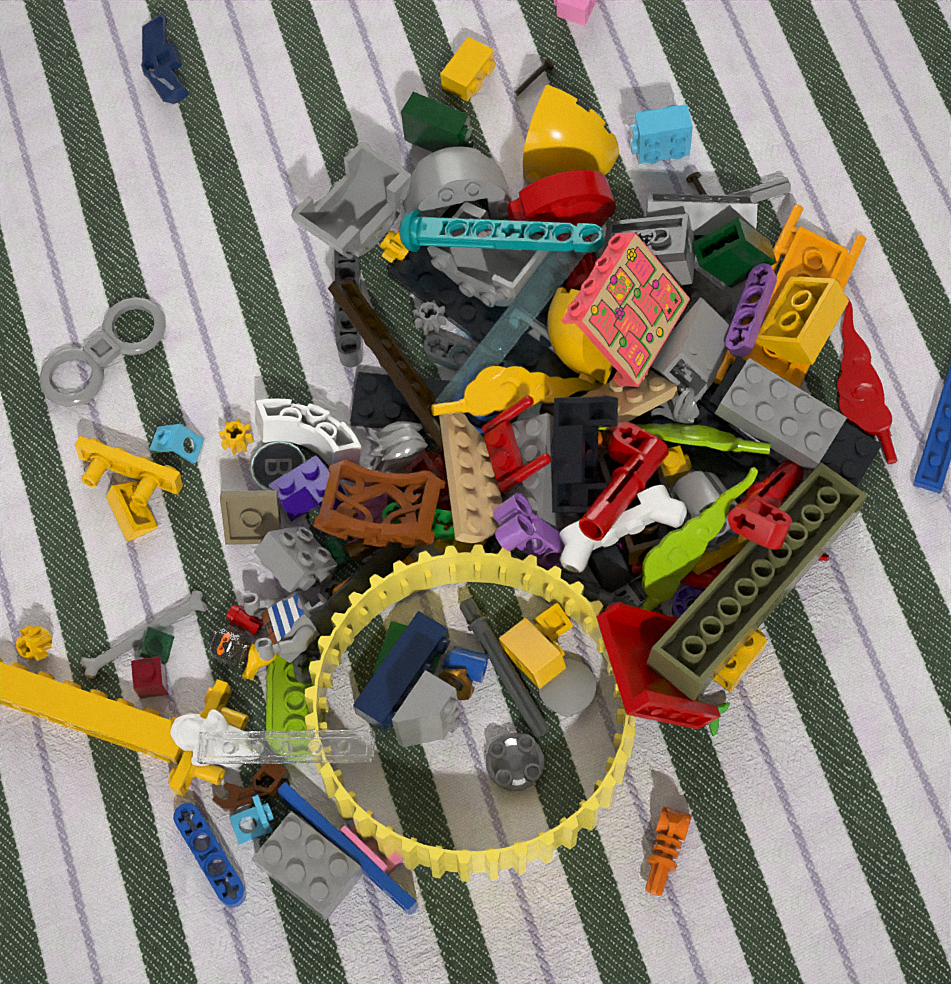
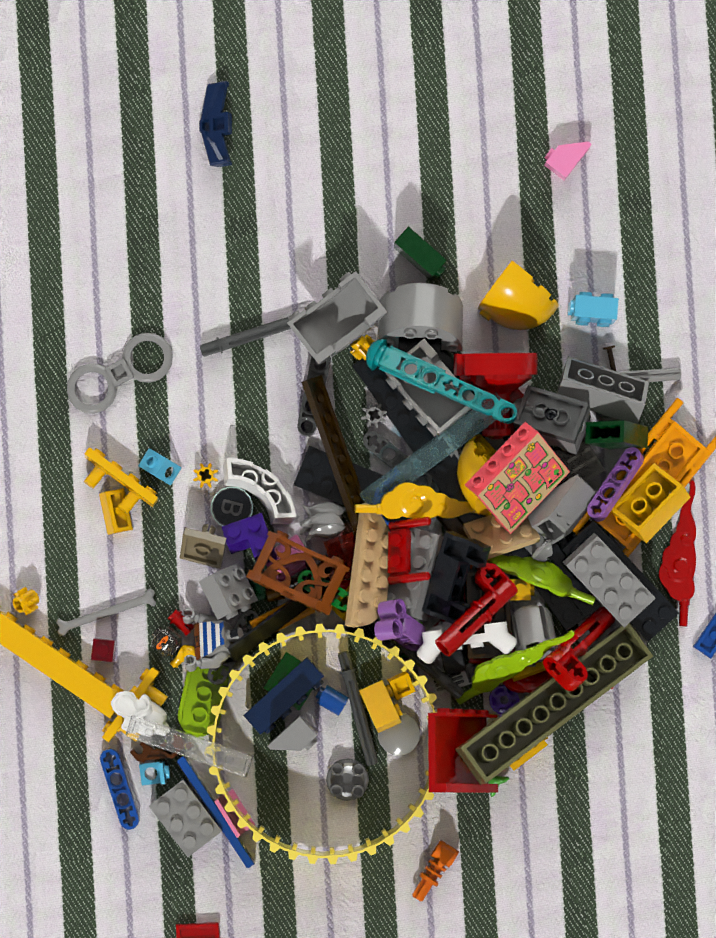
camera: 10 degrees right, 20 degrees up
(155, 644) = (113, 626): clear green plate -> none
(253, 270) = (244, 337): none -> dark grey axle
(463, 692) = (321, 713): pearl gold piece -> none
(468, 69) = (459, 201): yellow brick -> none
(546, 64) = (510, 219): dark brown pin -> none

